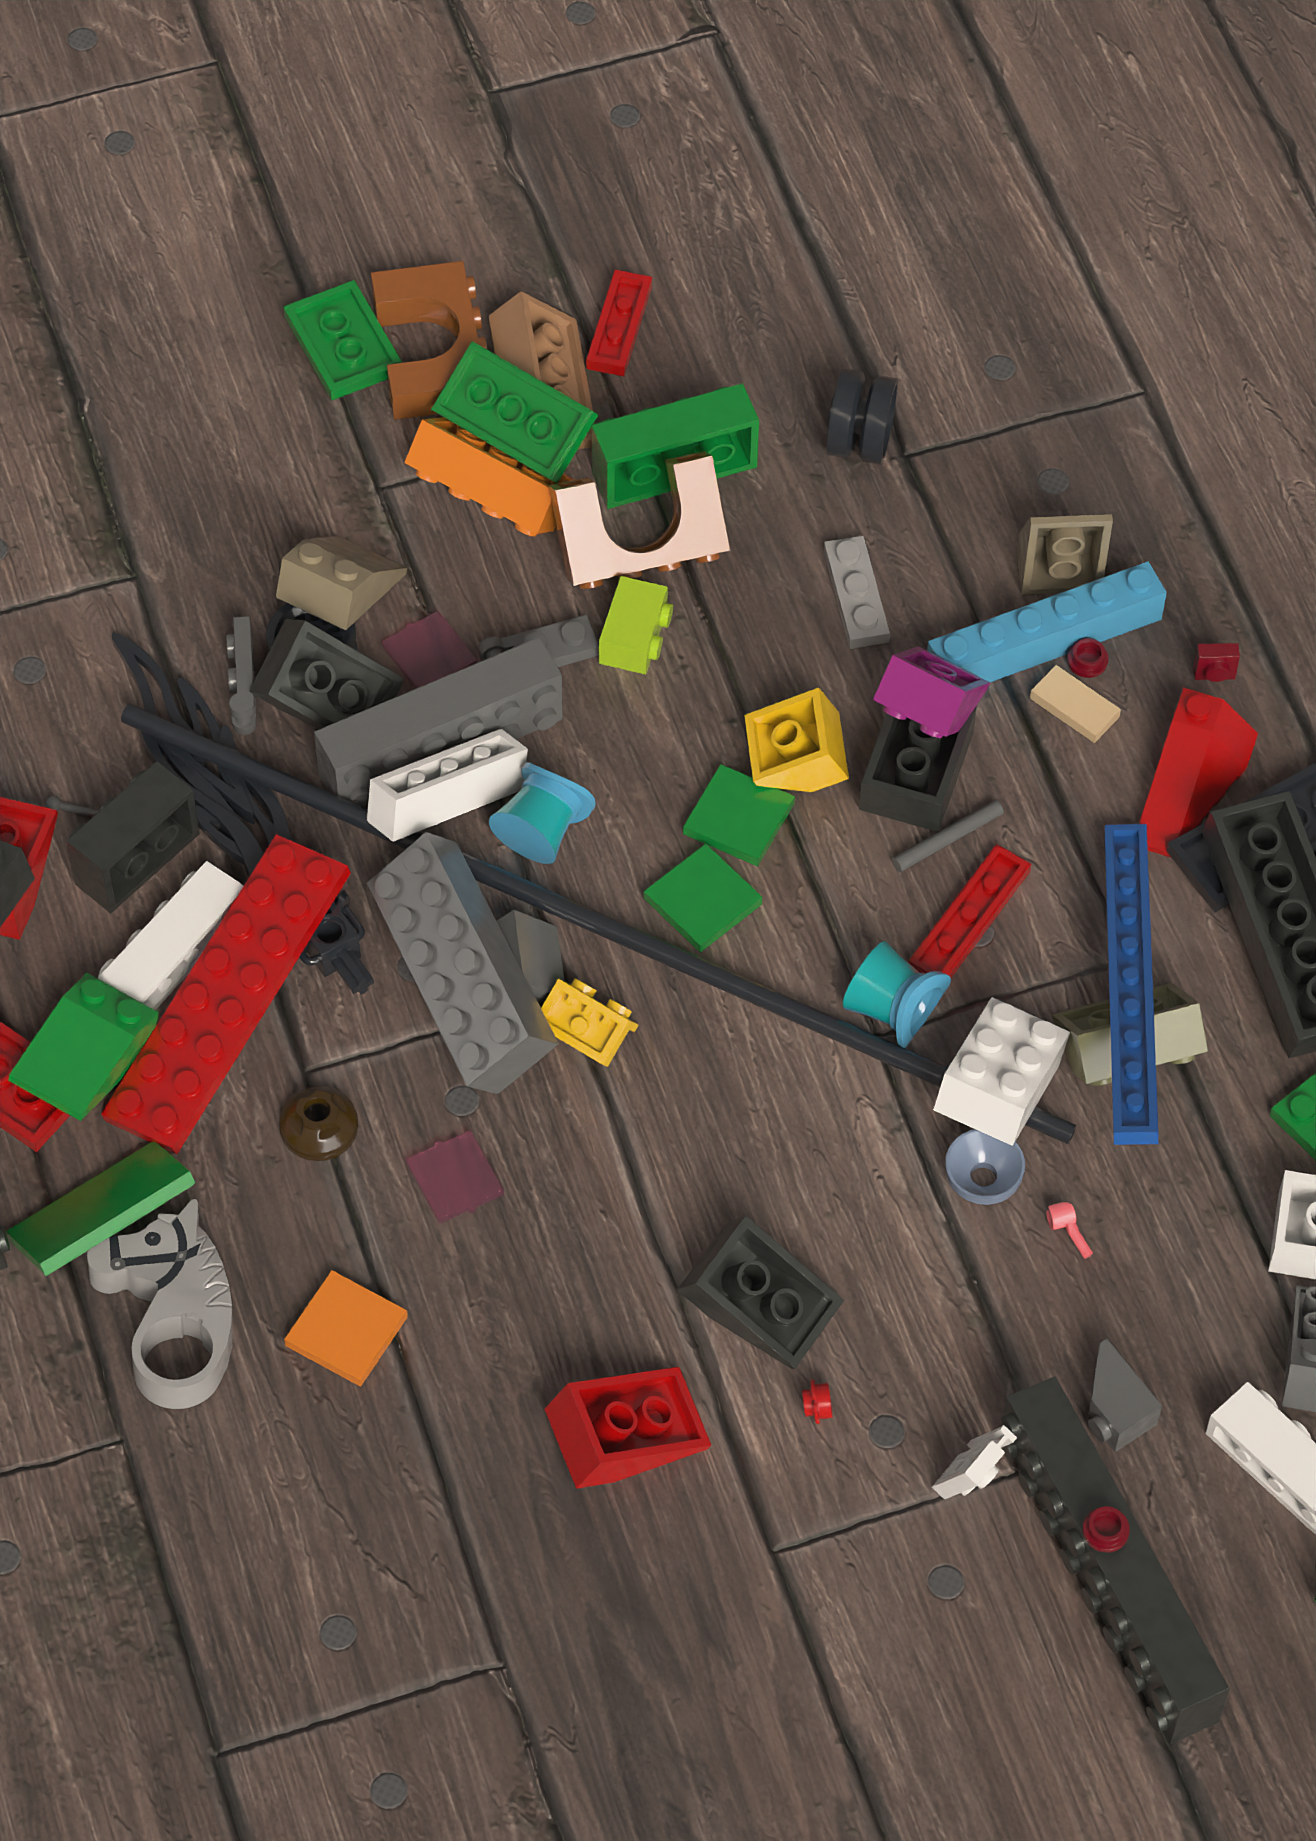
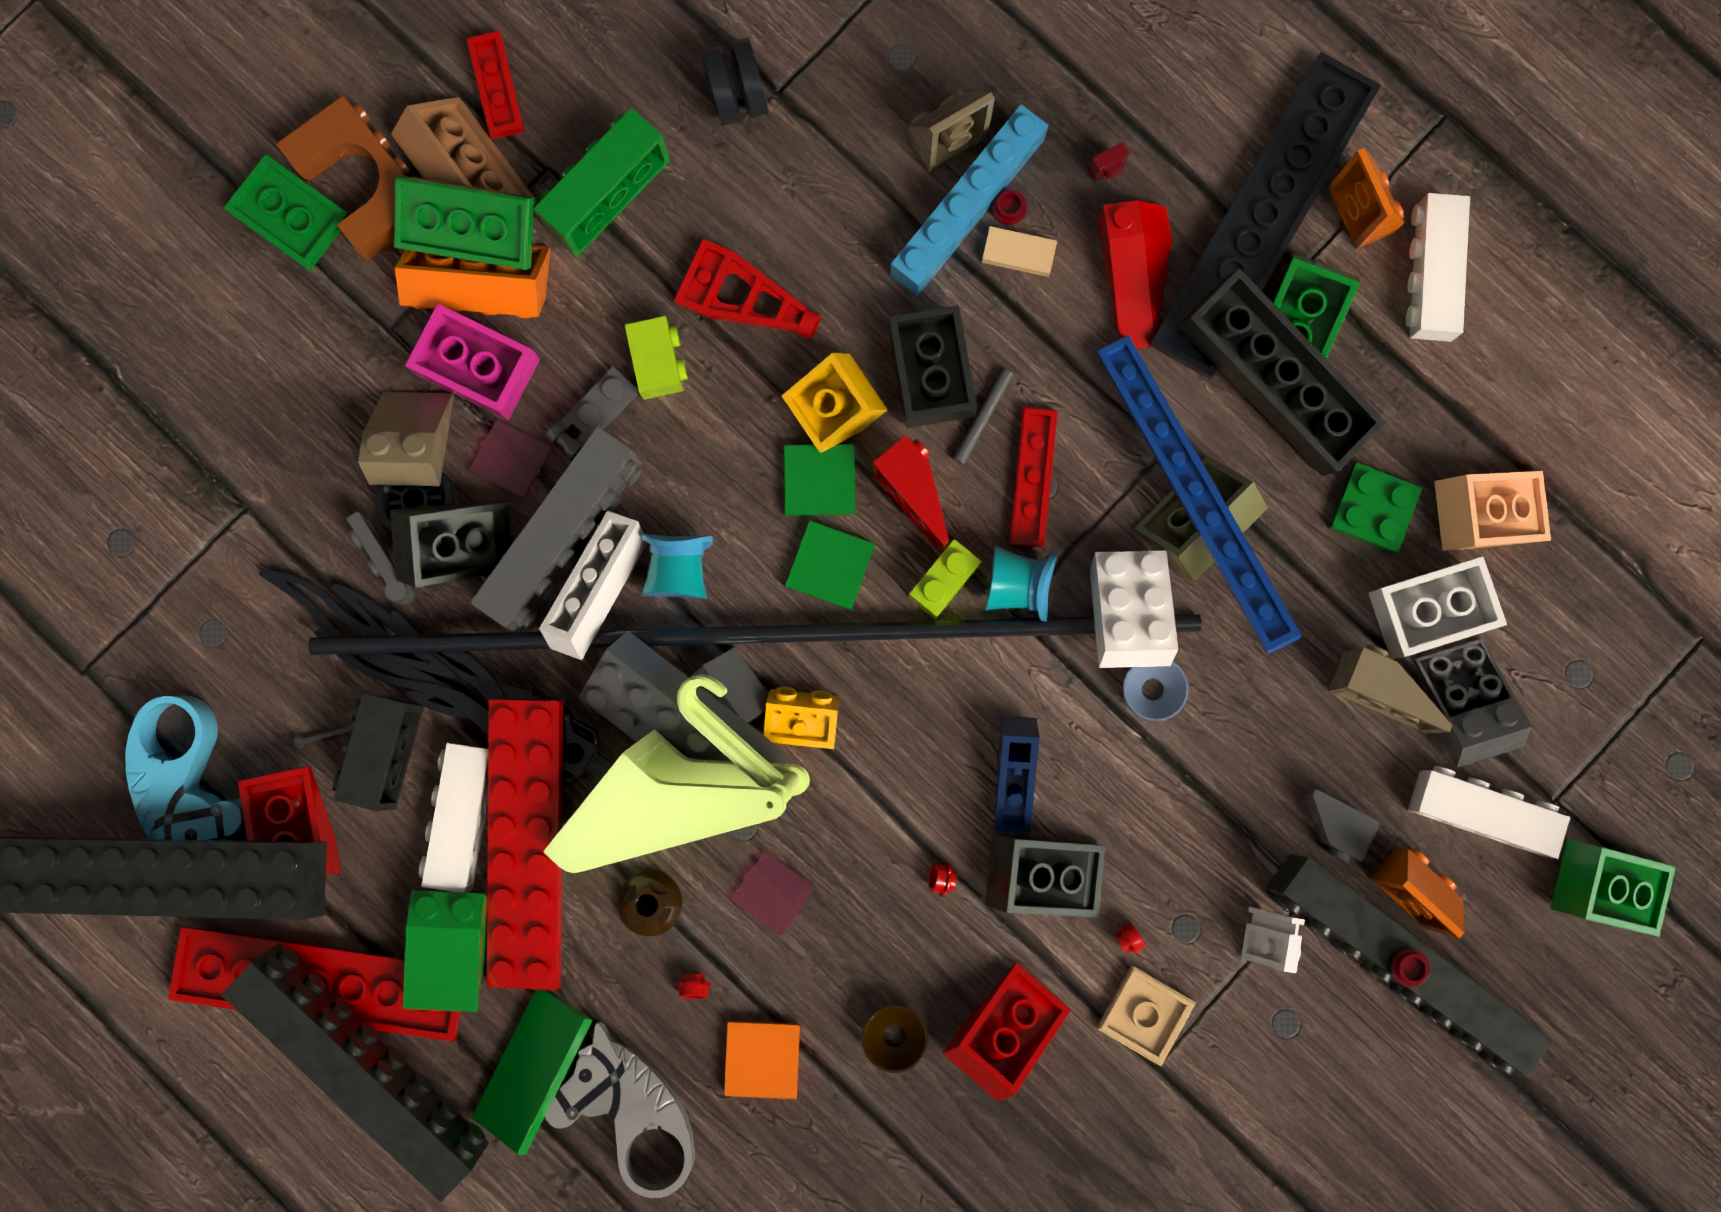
camera: 25 degrees left, 25 degrees up
(316, 1220) = (693, 986): none -> red plate
(391, 990) = (665, 799): none -> yellowish green piece
(447, 543) = (473, 361): none -> dark pink brick
(497, 1349) = (900, 1057): none -> dark brown piece
(646, 1244) = (942, 878): none -> red plate
(693, 532) = (656, 257): arch -> none
(736, 576) = (707, 276): none -> red plate
(788, 1173) = (1016, 773): none -> dark blue slope
(792, 1491) = (1146, 1015): none -> tan tile
(816, 959) = (944, 579): none -> lime brick
(830, 845) = (910, 482): none -> red slope
(856, 592) = (805, 236): light grey plate -> none
(929, 691) = (922, 315): magenta slope -> none
(1063, 1216) = (1226, 694): coral hand -> none
(1166, 1494) = (1421, 892): none -> orange slope
(1233, 1275) = (1385, 687): none -> dark tan slope

